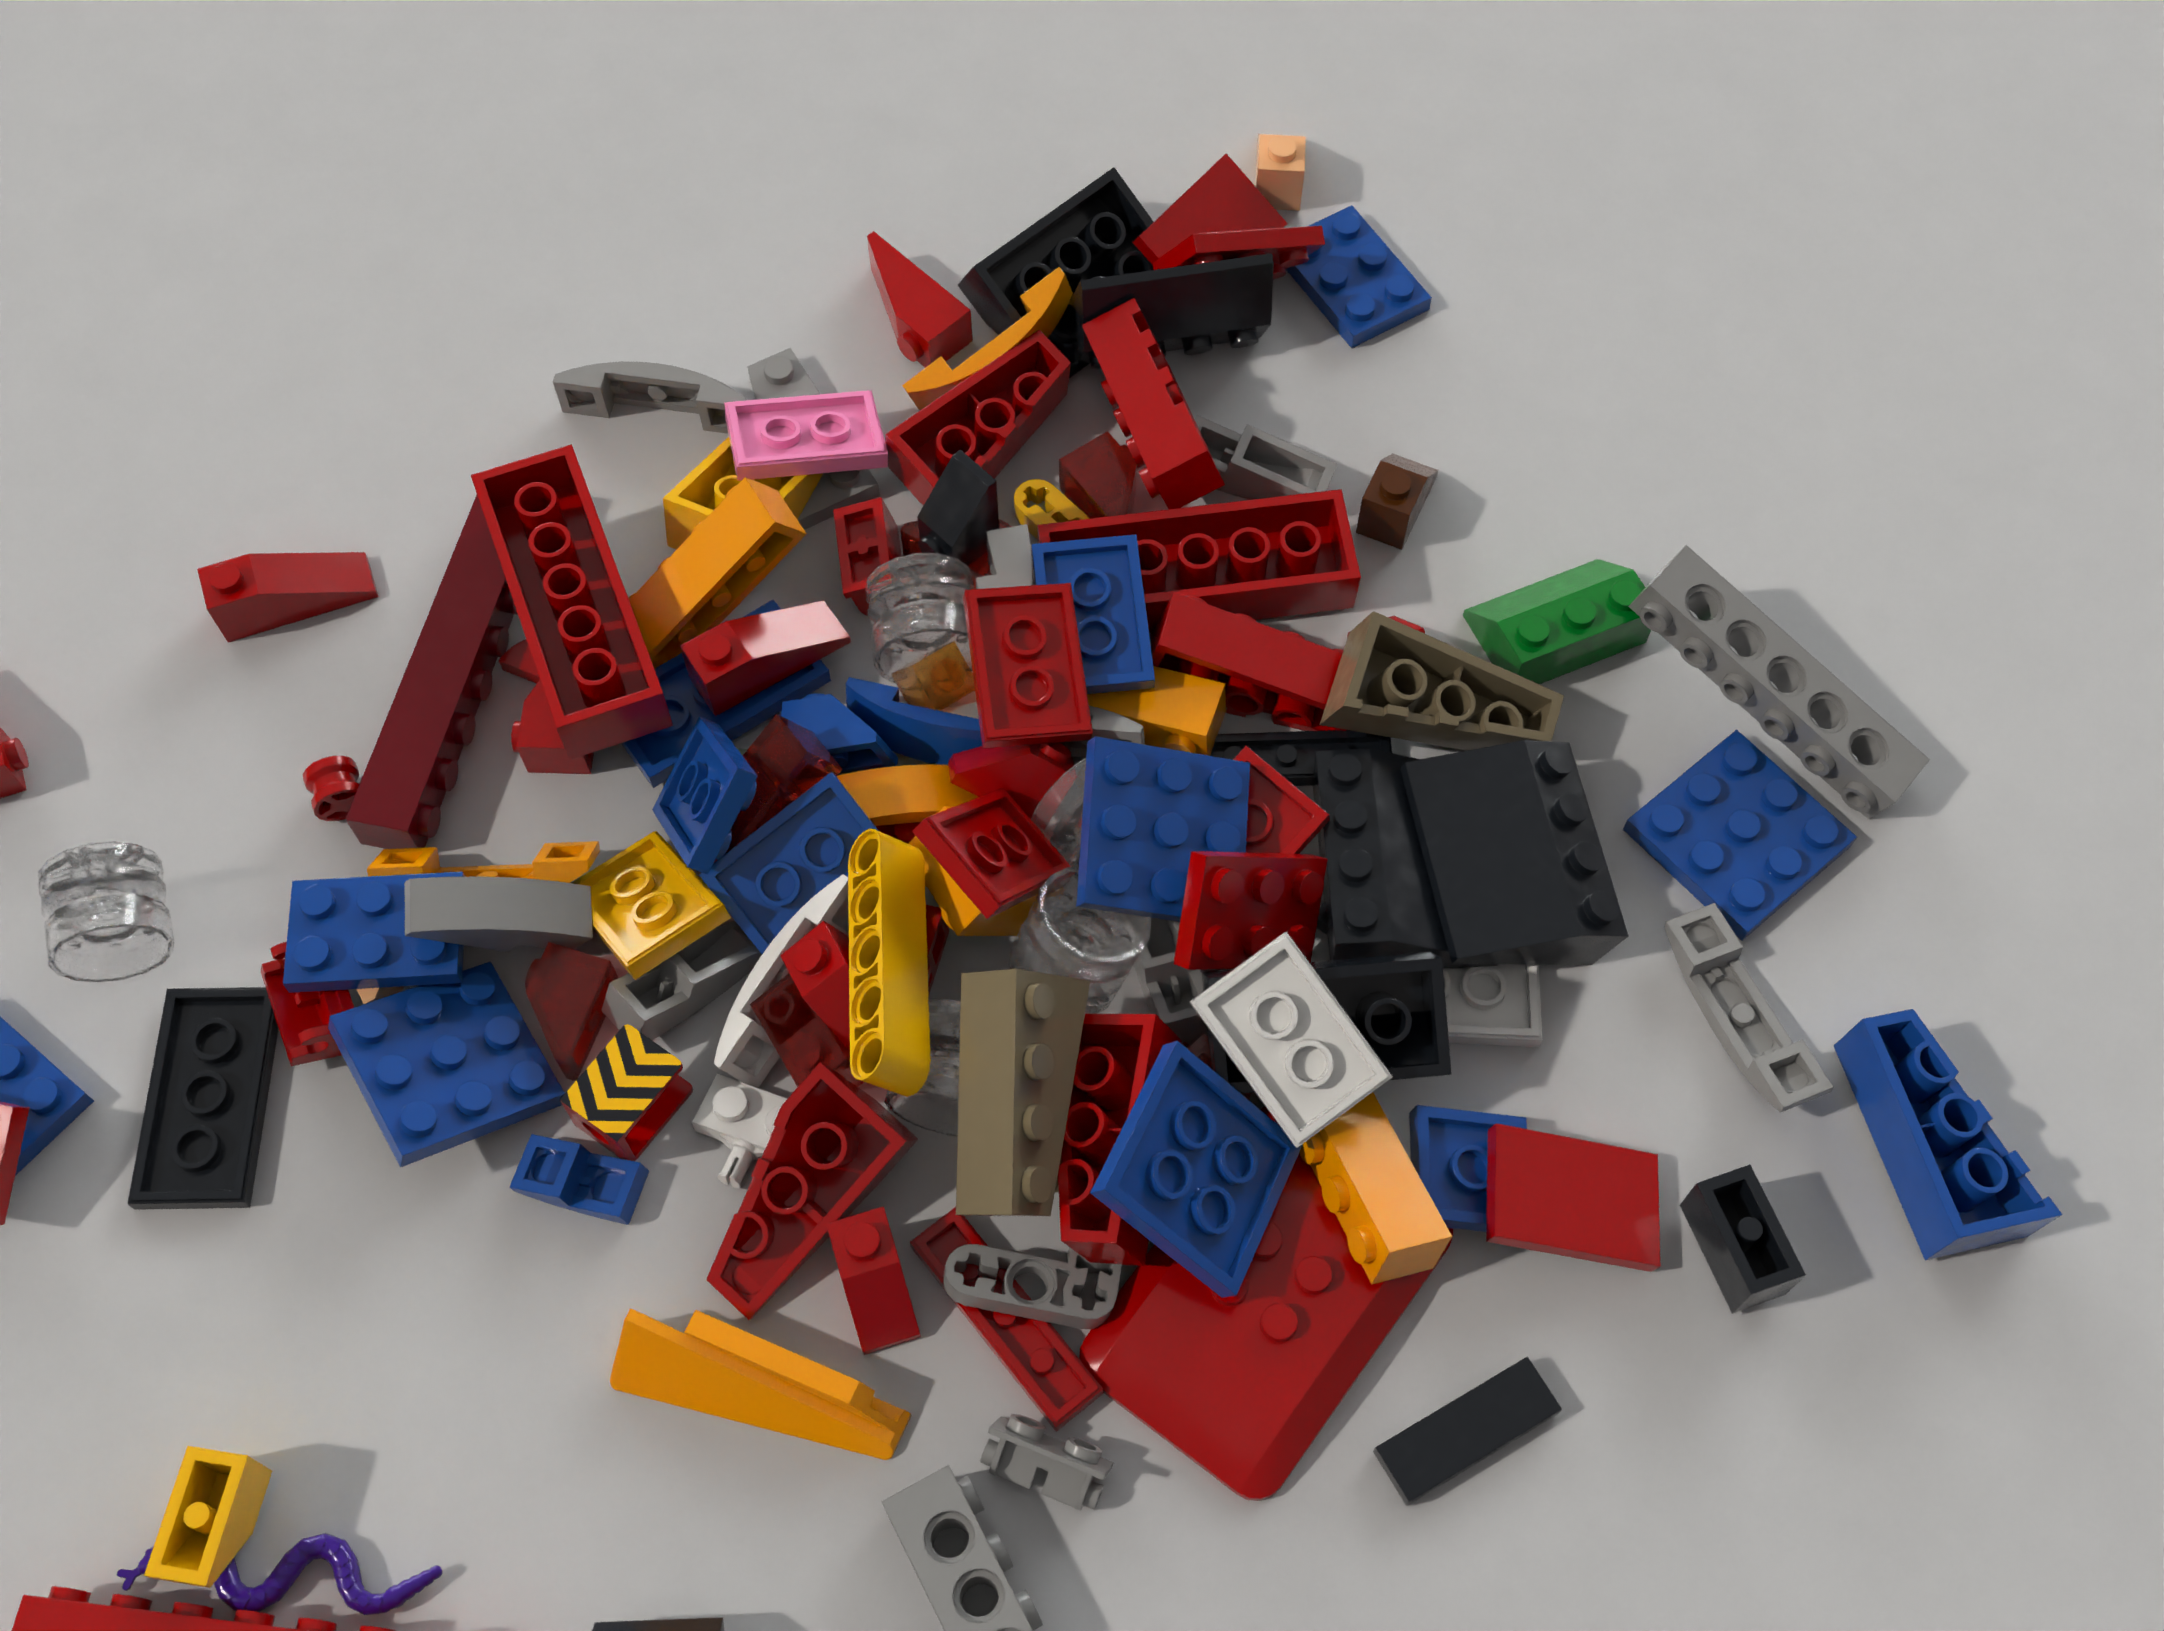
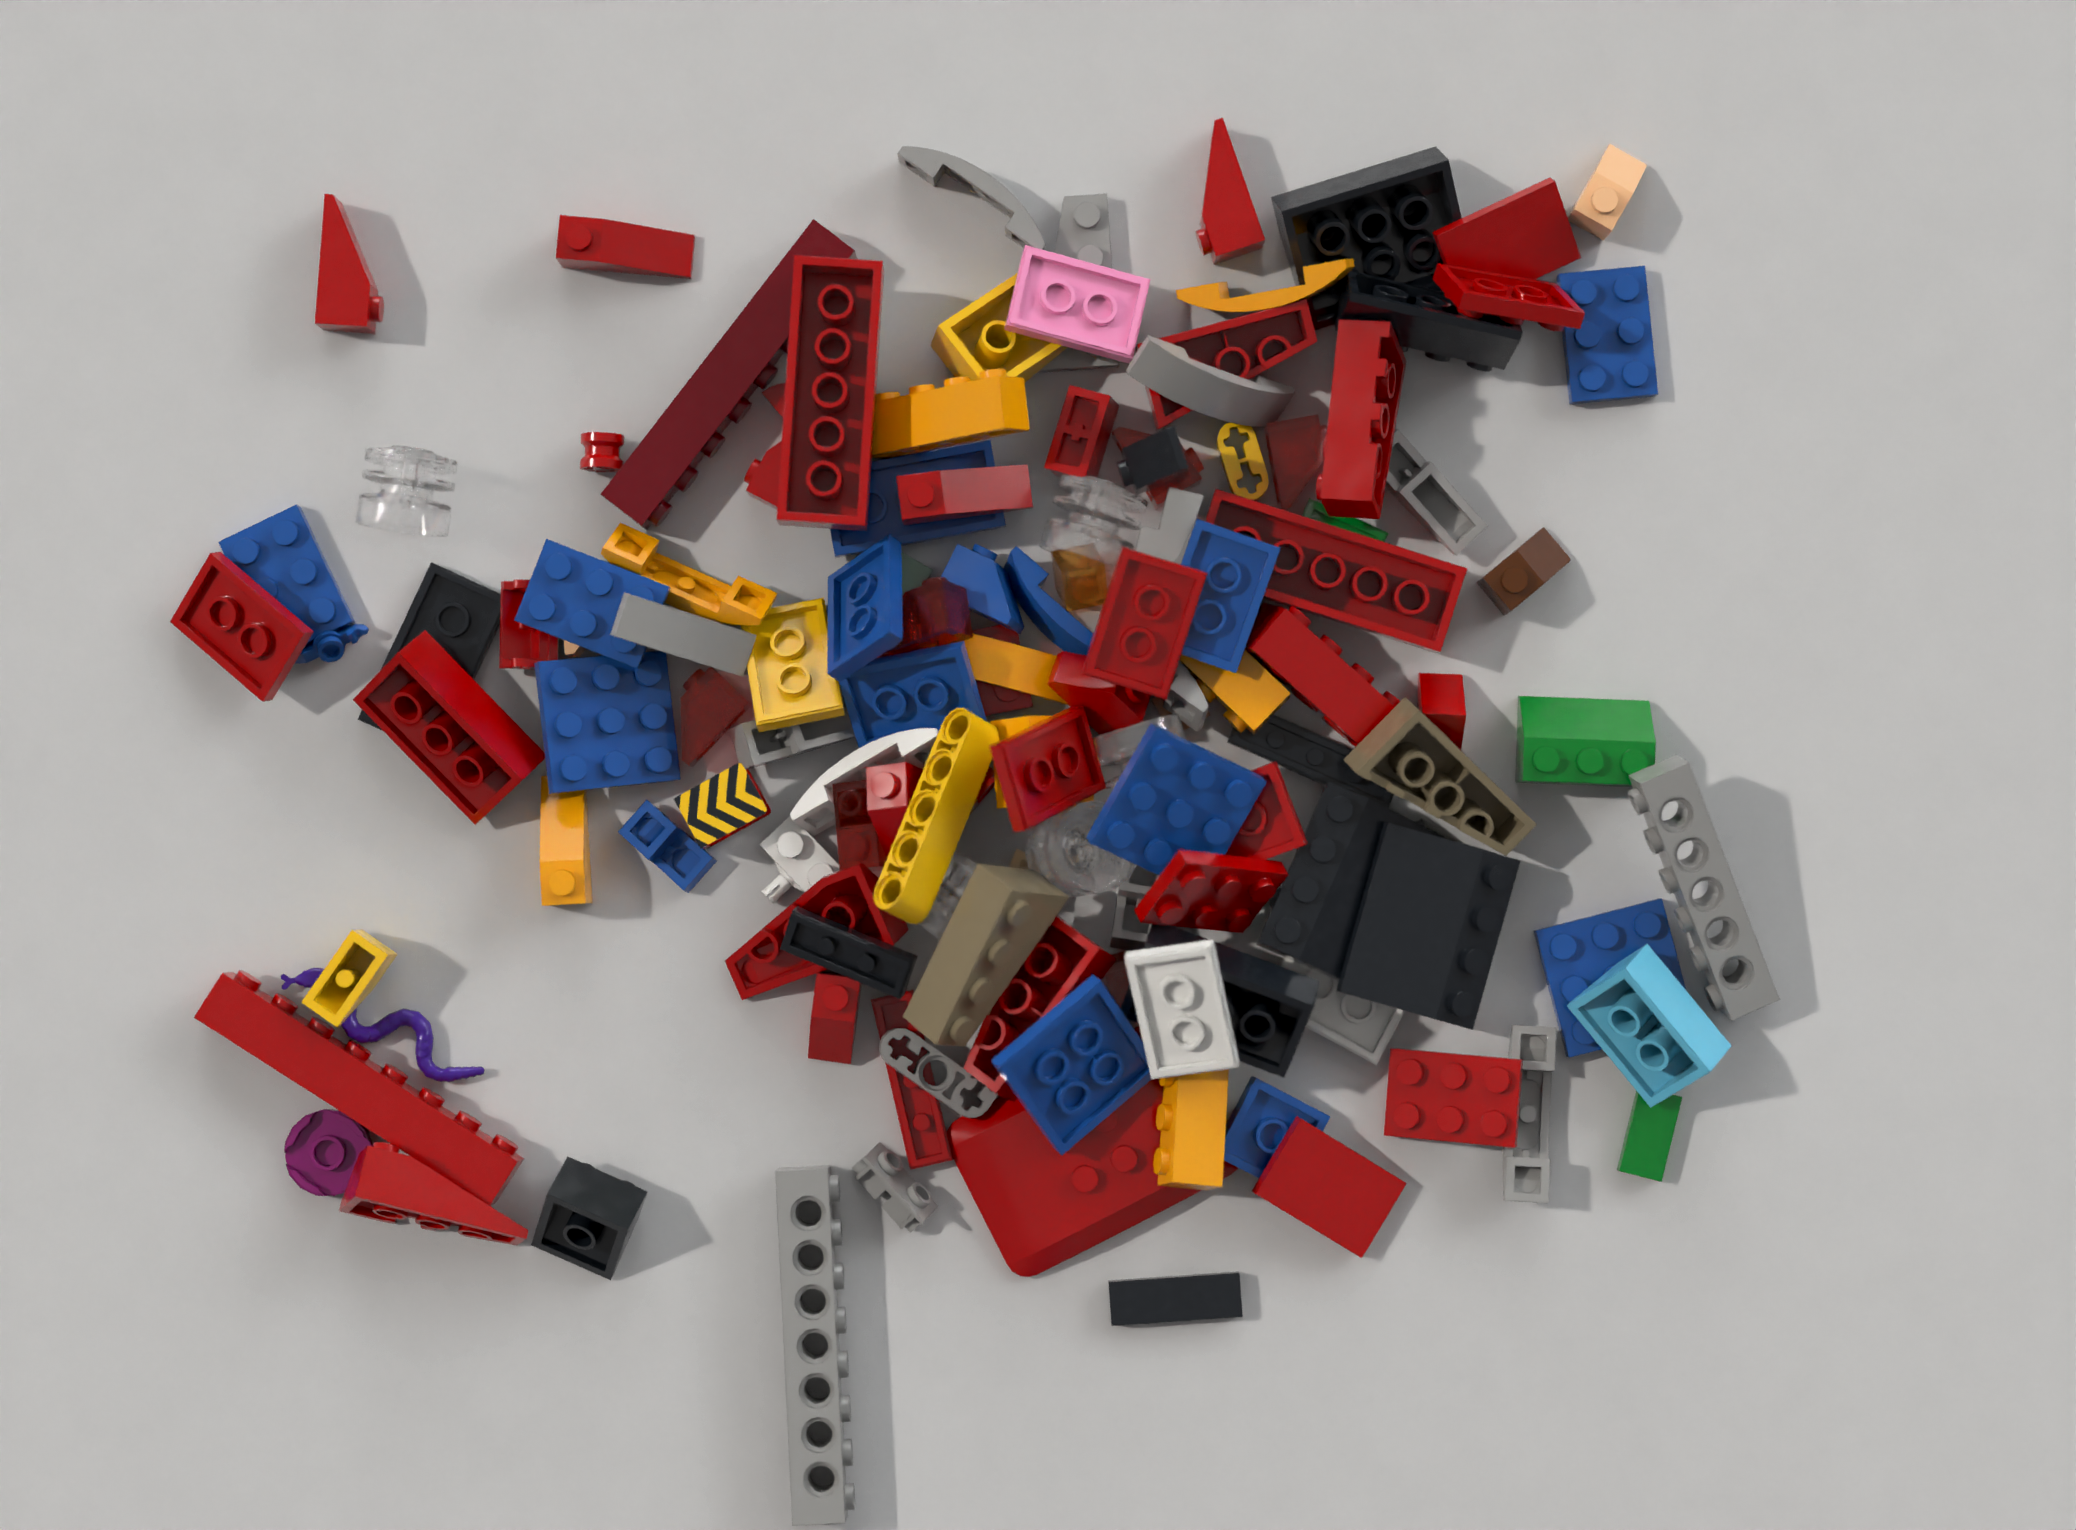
camera: 25 degrees right, 25 degrees up
(63, 1136) = (331, 645): none -> blue piece
(245, 1152) = (449, 727): none -> red slope
(448, 1236) = (564, 848): none -> light orange slope
(753, 1383) = (728, 1046): light orange wedge -> none
(854, 1178) = (848, 952): none -> black tile
(981, 435) = (1205, 388): none -> light grey slope
(1651, 1029) = (1453, 1097): none -> red plate
(1741, 1239) = (1422, 1271): black brick -> none
(1816, 847) = (1649, 1026): none -> medium azure slope
(1884, 969) = (1649, 1137): none -> green tile
(1937, 1141) = (1596, 1270): blue wedge -> none

